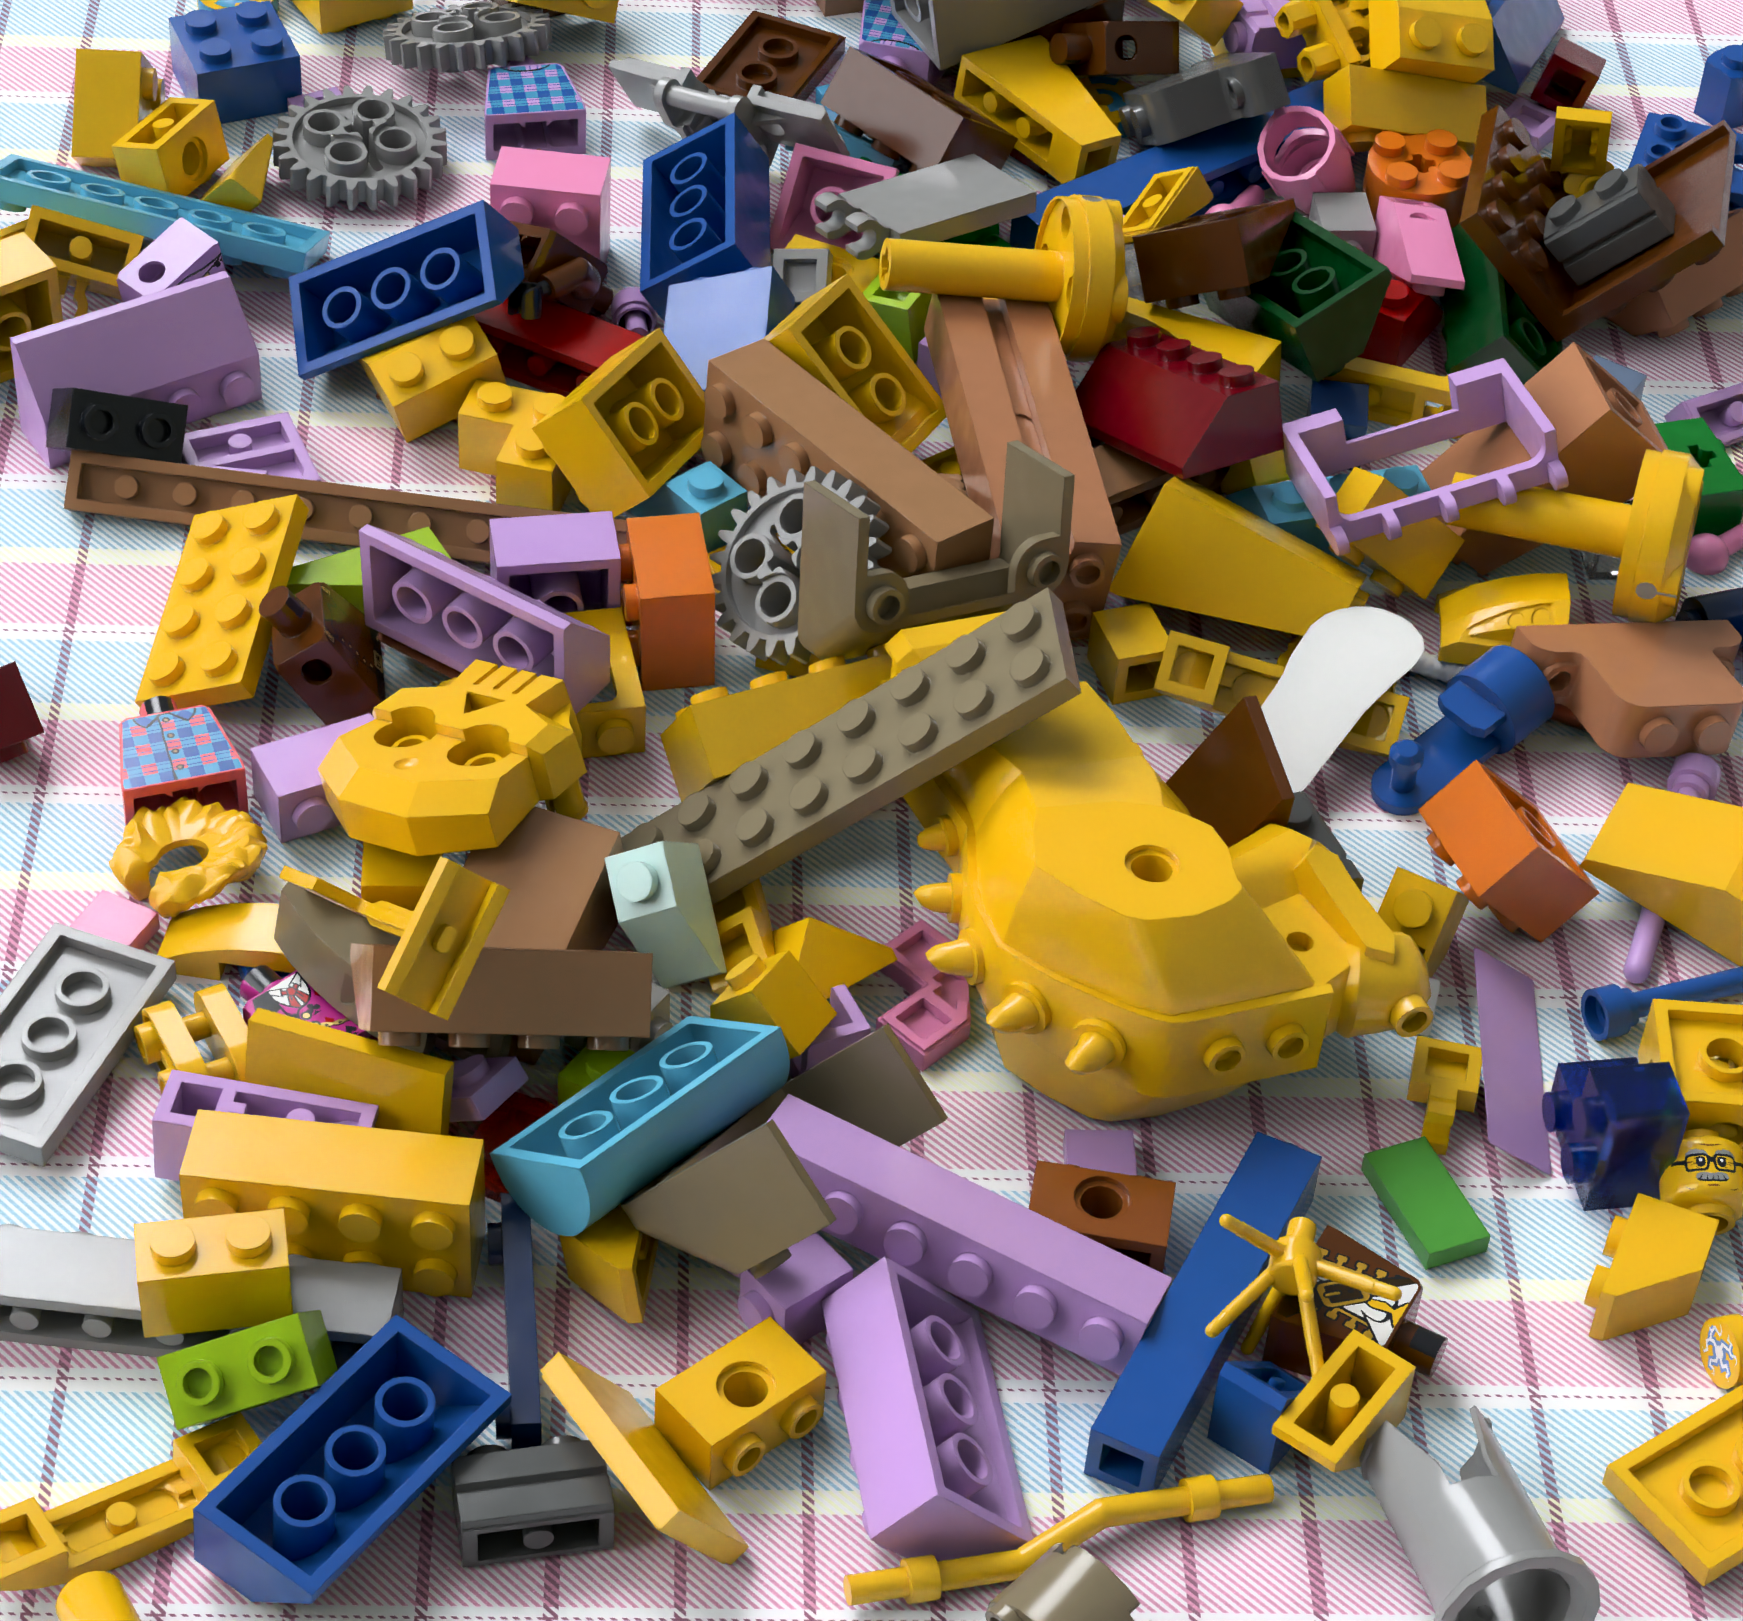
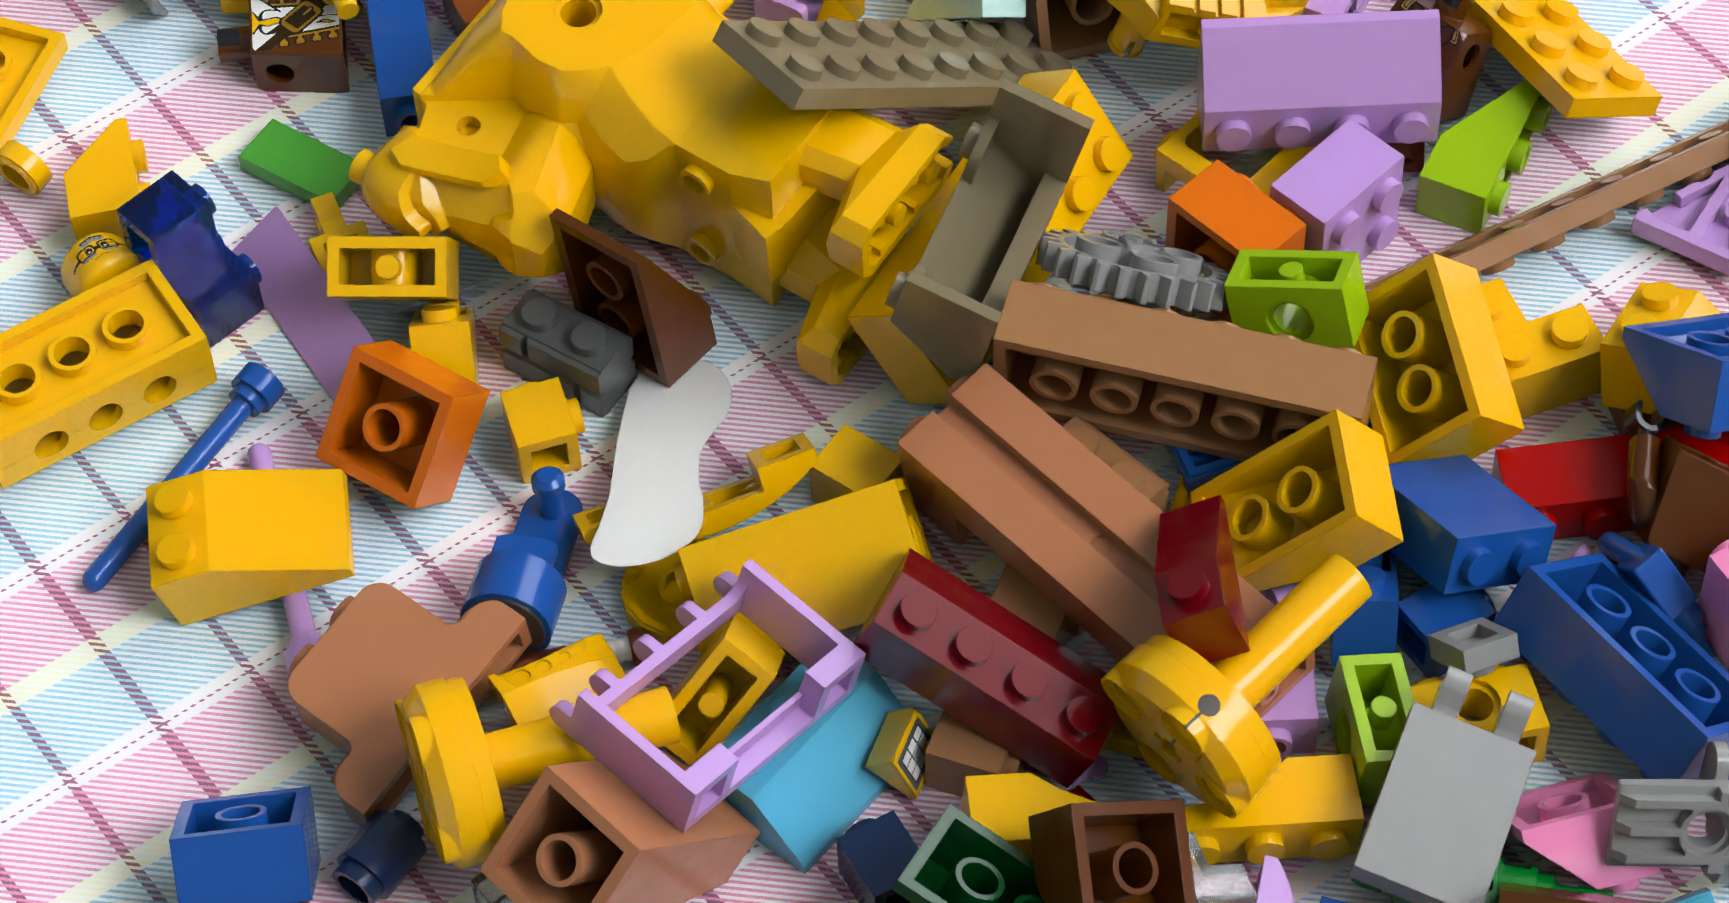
camera: 150 degrees right, 10 degrees up
(624, 264) = (1660, 581): none -> blue piece
(695, 466) = (1299, 294): none -> lime brick
(1002, 298) = (1200, 581): none -> dark red slope
(1372, 825) = (542, 427): none -> yellow brick
(1472, 954) = (393, 268): none -> yellow brick

